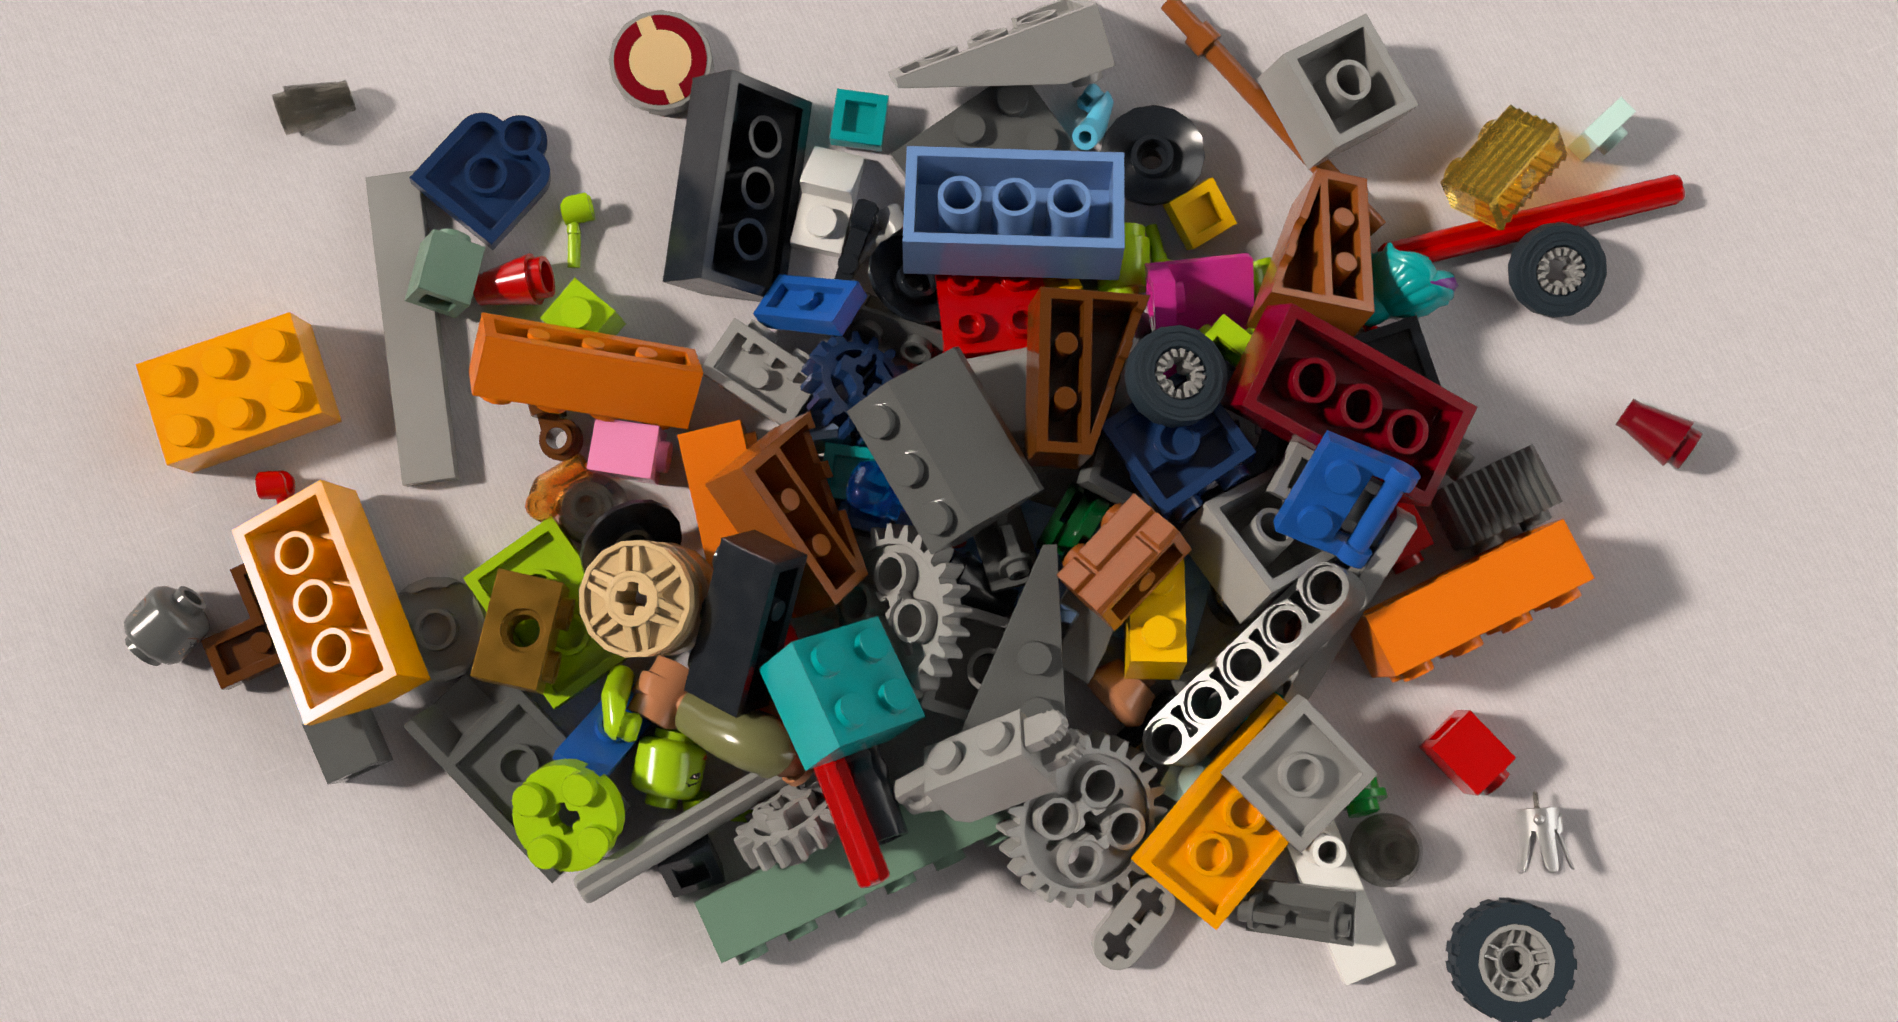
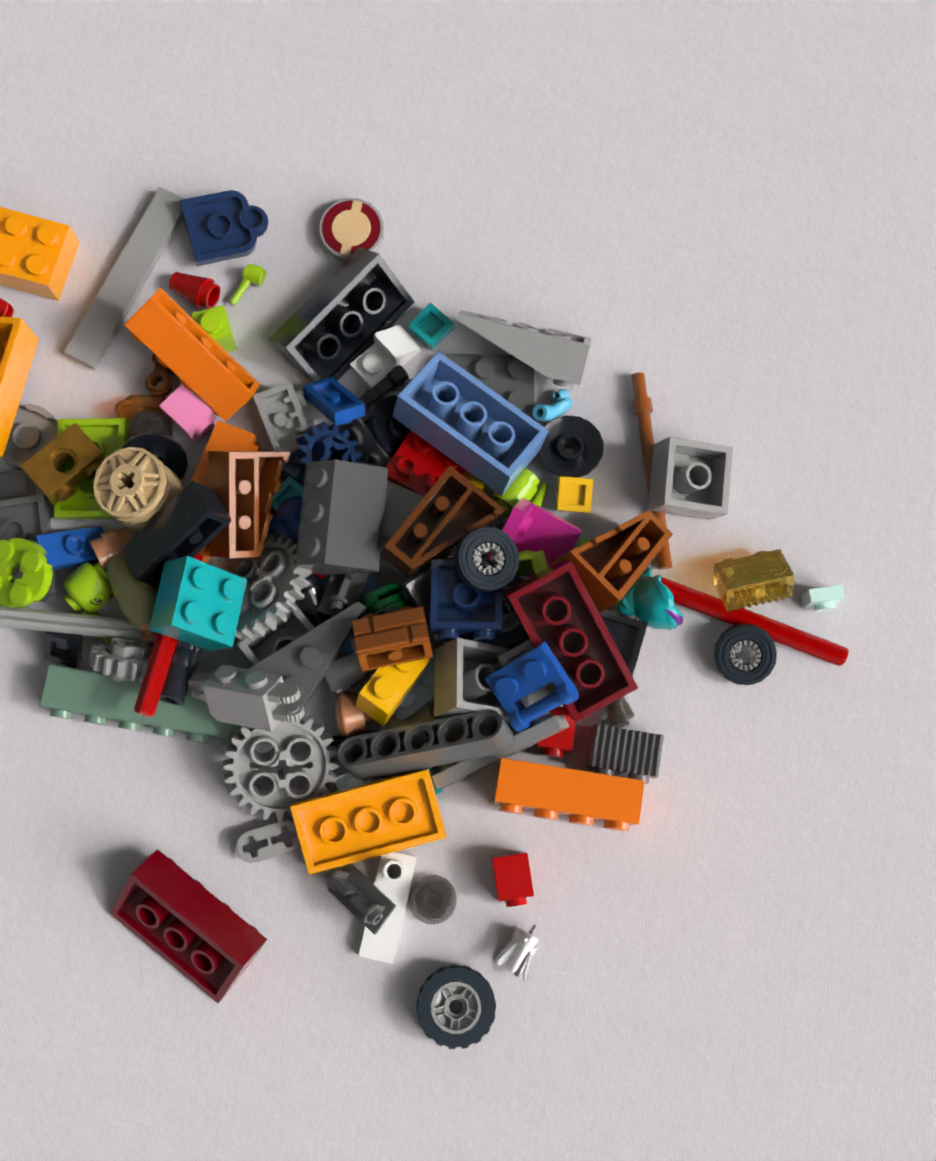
camera: 30 degrees right, 5 degrees down
(312, 105) = (159, 133): clear smoke cone -> none
(445, 272) = (163, 259): sand green brick -> none
(614, 703) = (86, 530): lime arm -> none
(1299, 773) = (409, 819): light grey plate -> none
(1367, 800) = (437, 859): green plate -> none
(1660, 433) = (740, 780): dark red cone -> none

